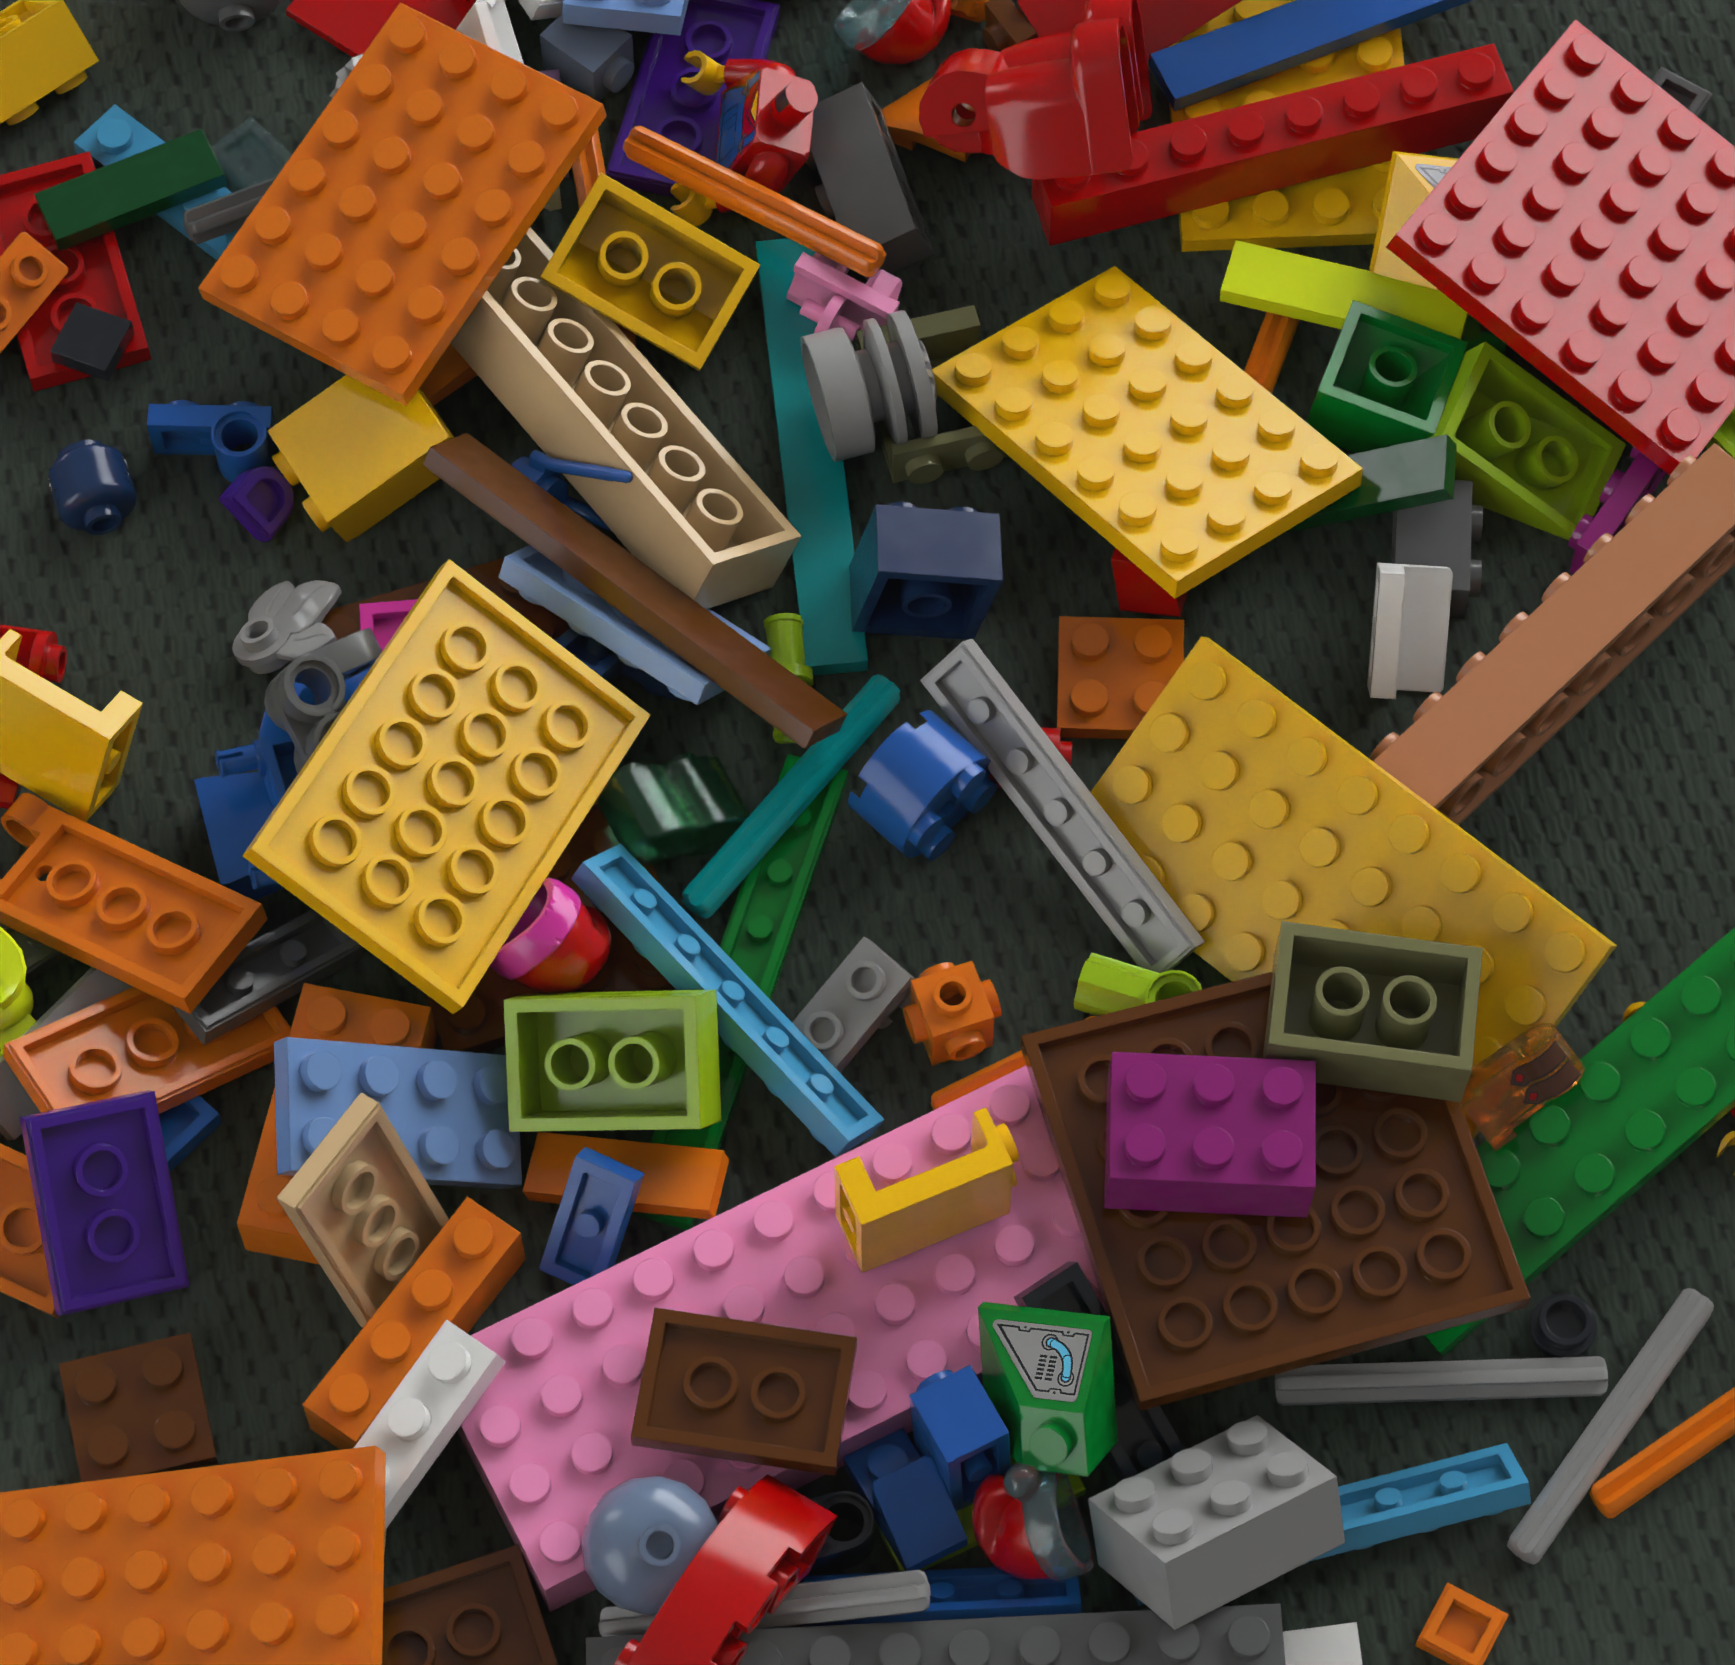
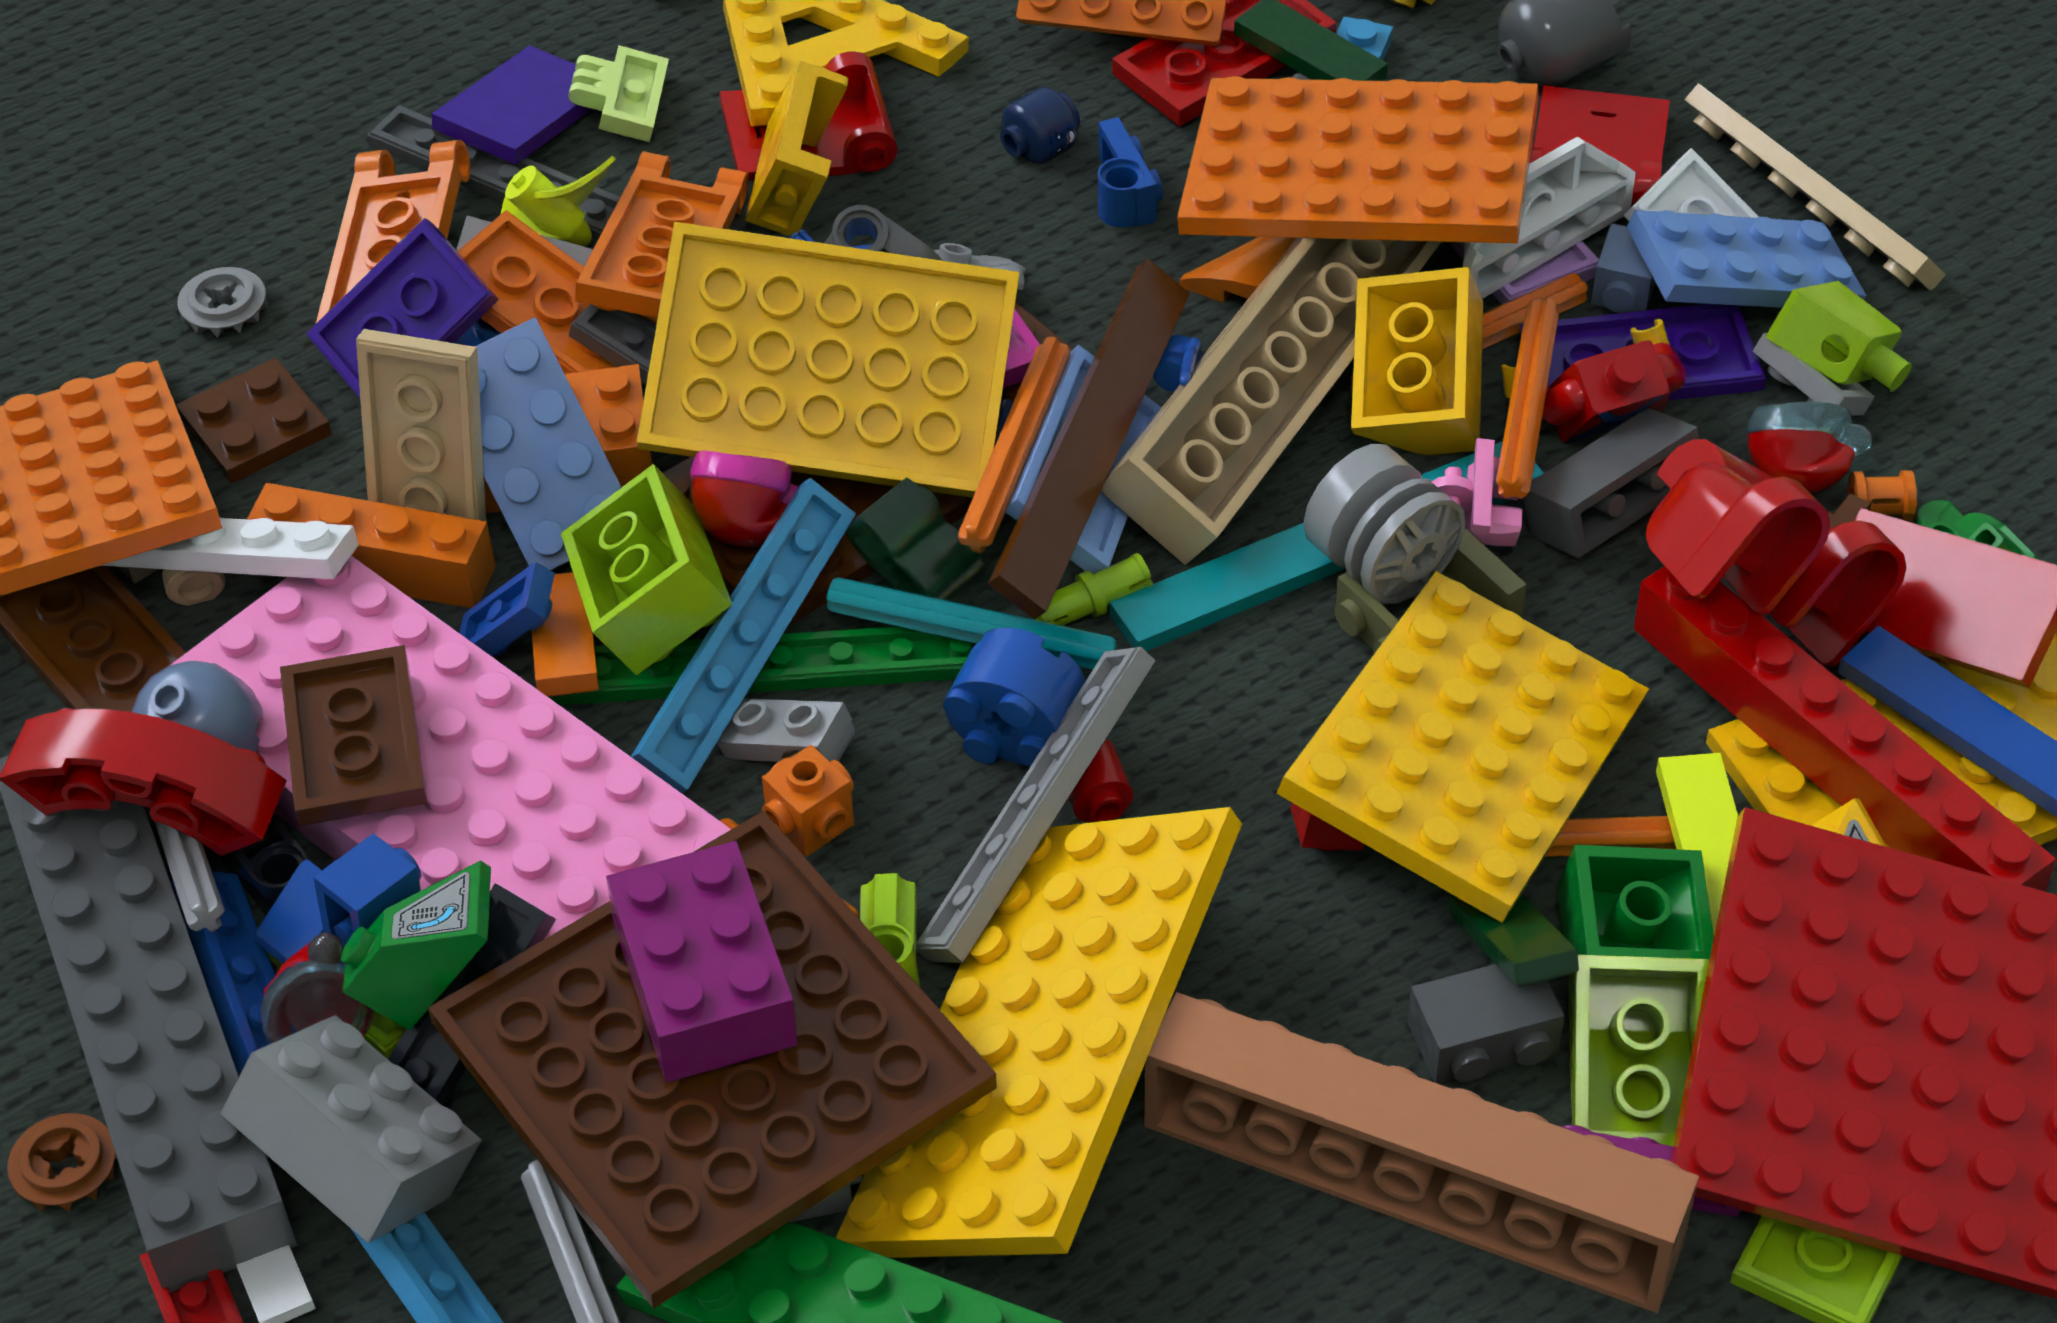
camera: 70 degrees right, 15 degrees down
(92, 341) = (1159, 73): black tile -> none
(260, 501) = (1081, 220): dark purple tile -> none
(357, 454) = (1144, 229): yellow brick -> none
(620, 663) = (1014, 445): none -> orange axle
(925, 571) = (1225, 626): brick -> none
(930, 1204) = (589, 811): yellow panel -> none
(1113, 672) = (1264, 841): orange plate -> none
(1375, 1009) = (880, 1045): olive brick -> none
(1409, 629) = (1373, 1005): white panel -> none
(1519, 1081) = (887, 1226): clear orange leg -> none

